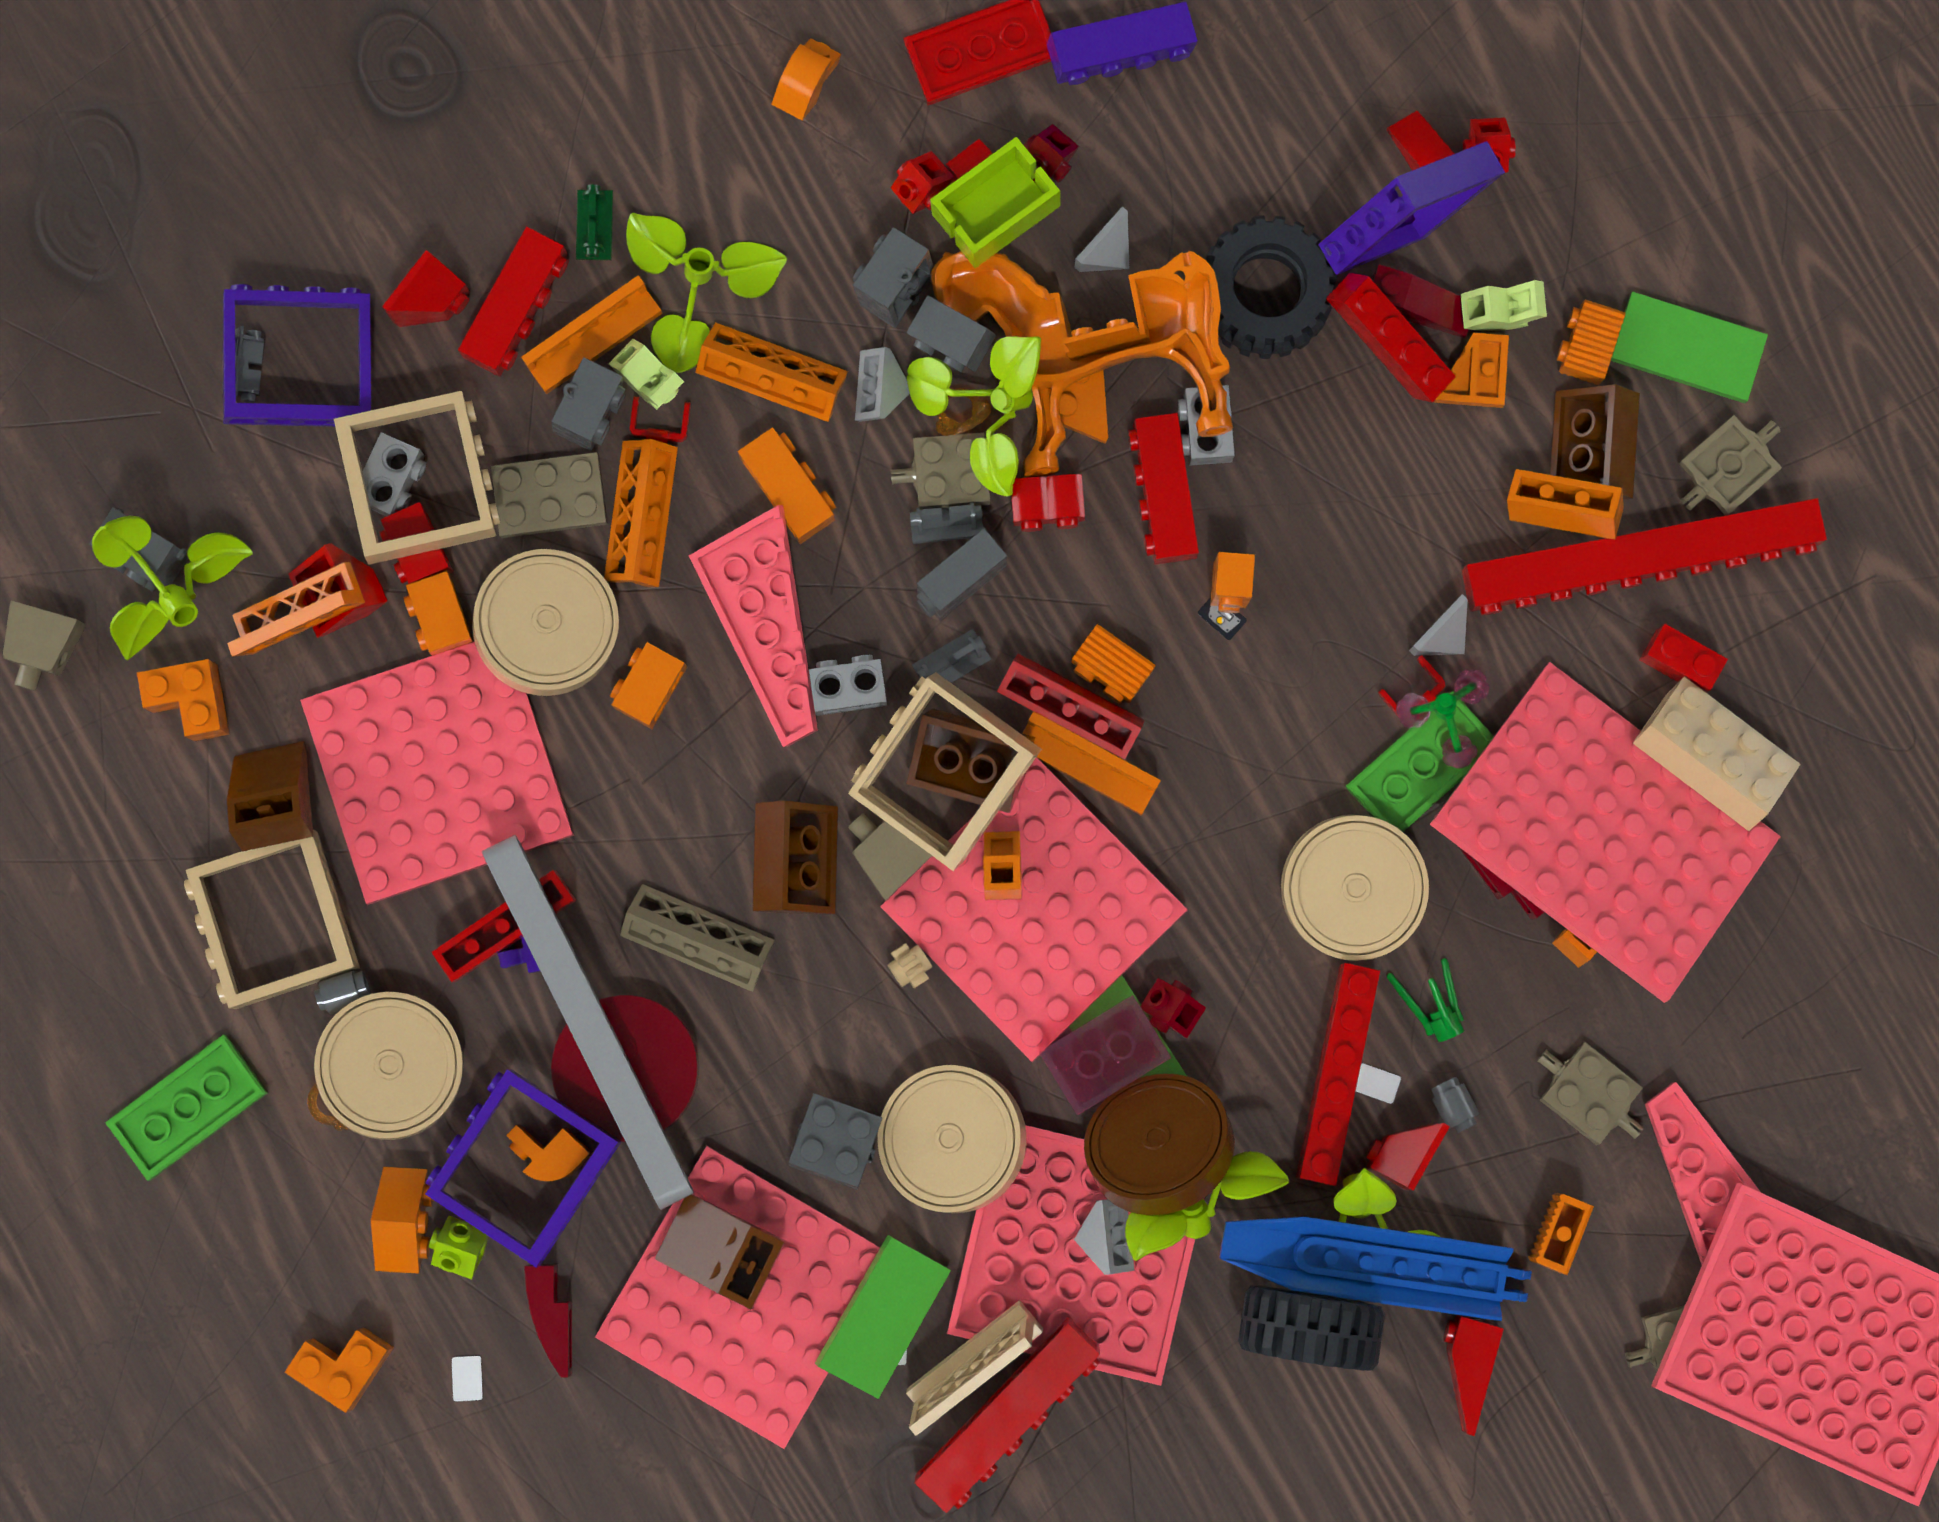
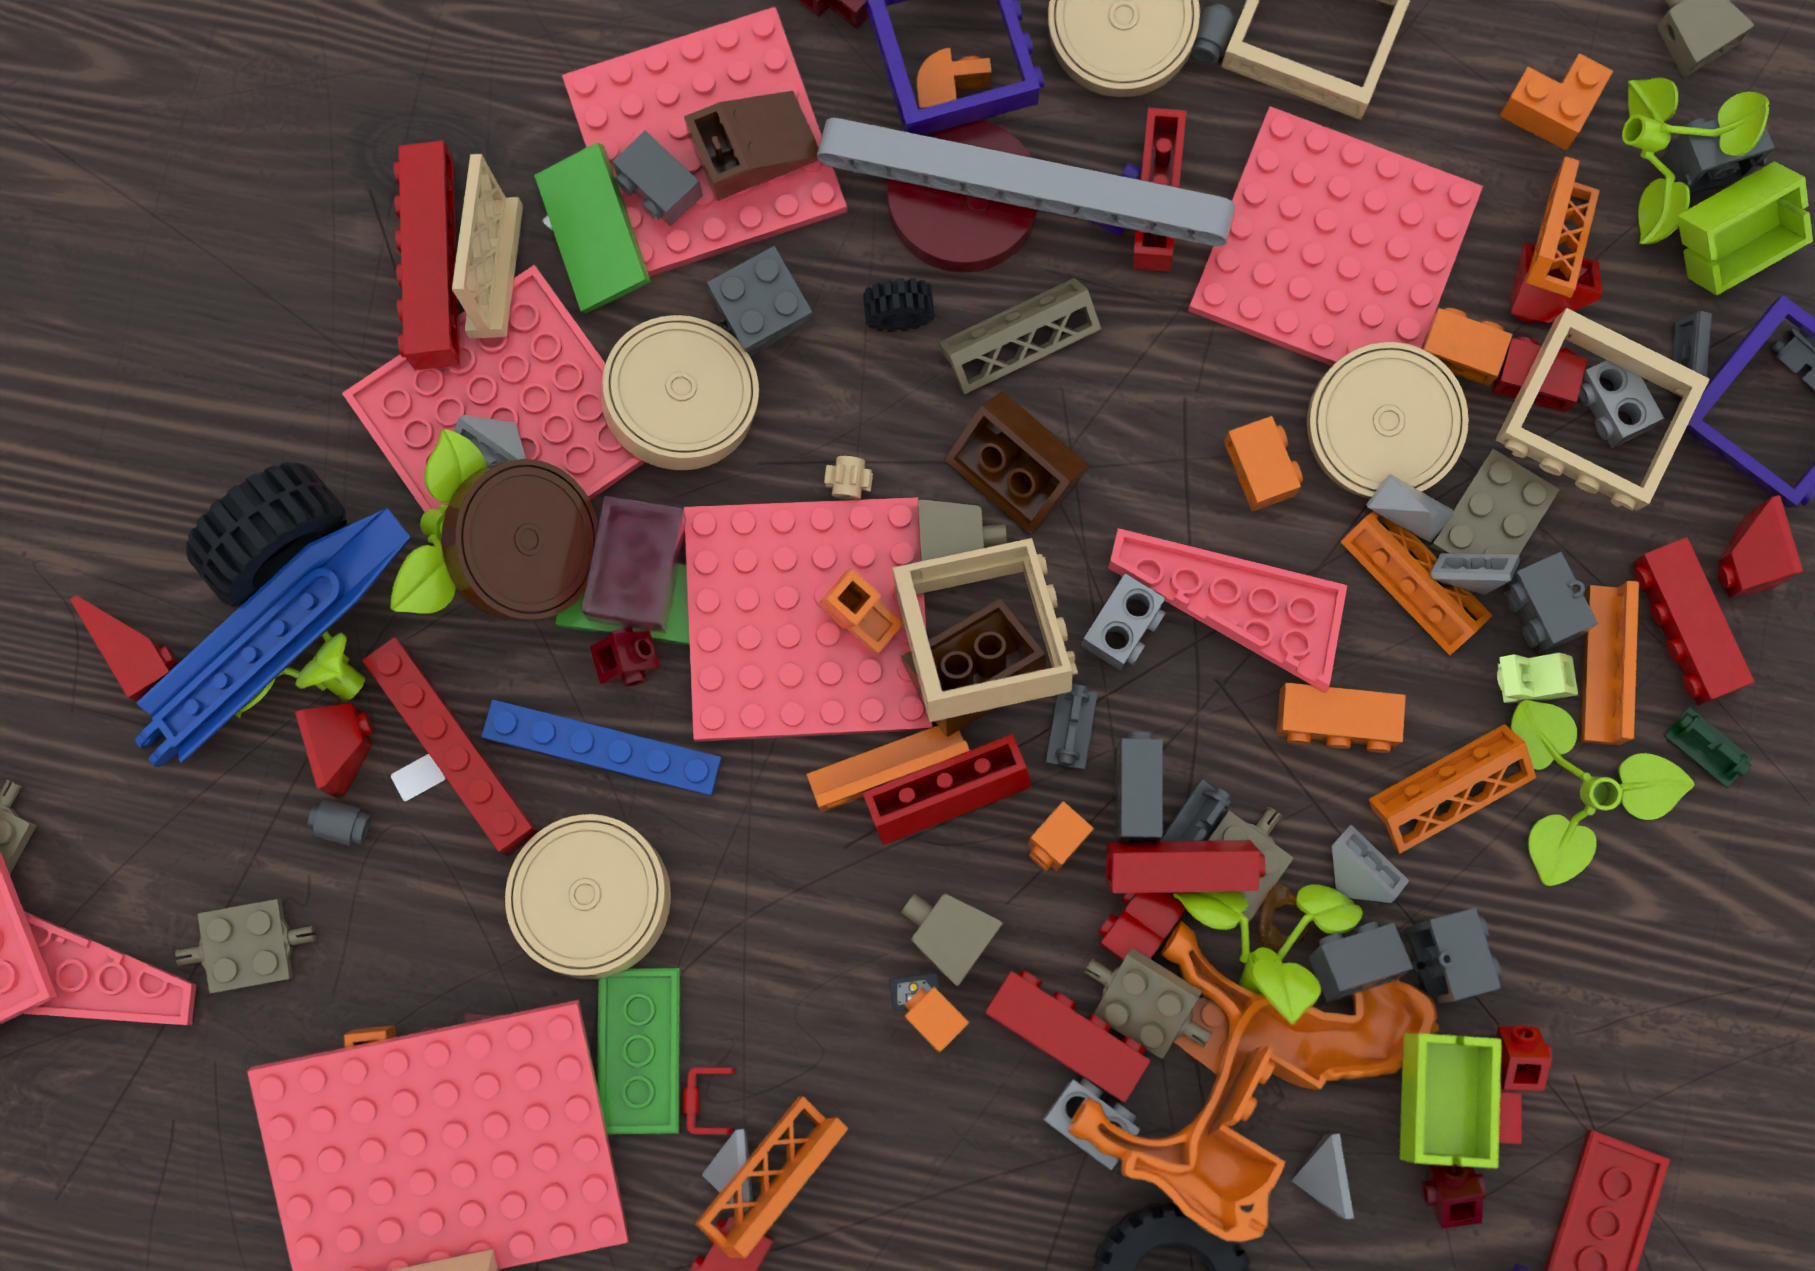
camera: 135 degrees right, 5 degrees down
(184, 485) = (1745, 228): none -> lime piece
(269, 797) = (1422, 92): reddish brown slope -> none
(308, 454) = (1693, 342): none -> dark grey tile
(596, 556) = (1410, 508): none -> light grey slope
(603, 476) = (1475, 571): none -> light grey slope
(659, 434) = (1473, 648): red piece -> none
(753, 1038) = (898, 305): none -> black tyre
(804, 78) = (1704, 1036): orange brick -> none
(809, 1296) = (656, 179): none -> dark grey brick
(988, 500) = (1183, 866): none -> red brick
(1040, 601) = (1058, 838): none -> orange brick
(1098, 452) = (1147, 1003): none -> dark tan plate
(1112, 665) = (953, 857): orange brick -> none
(1165, 622) = (950, 934): none -> dark tan torso
(1246, 972) = (602, 748): none -> blue plate
(1416, 710) = (686, 1082): clear pink plant -> none
(1431, 587) = (782, 1188): none -> orange fence
(1445, 1020) = (414, 875): green plant -> none
(1561, 1233) = (157, 814): orange brick -> none

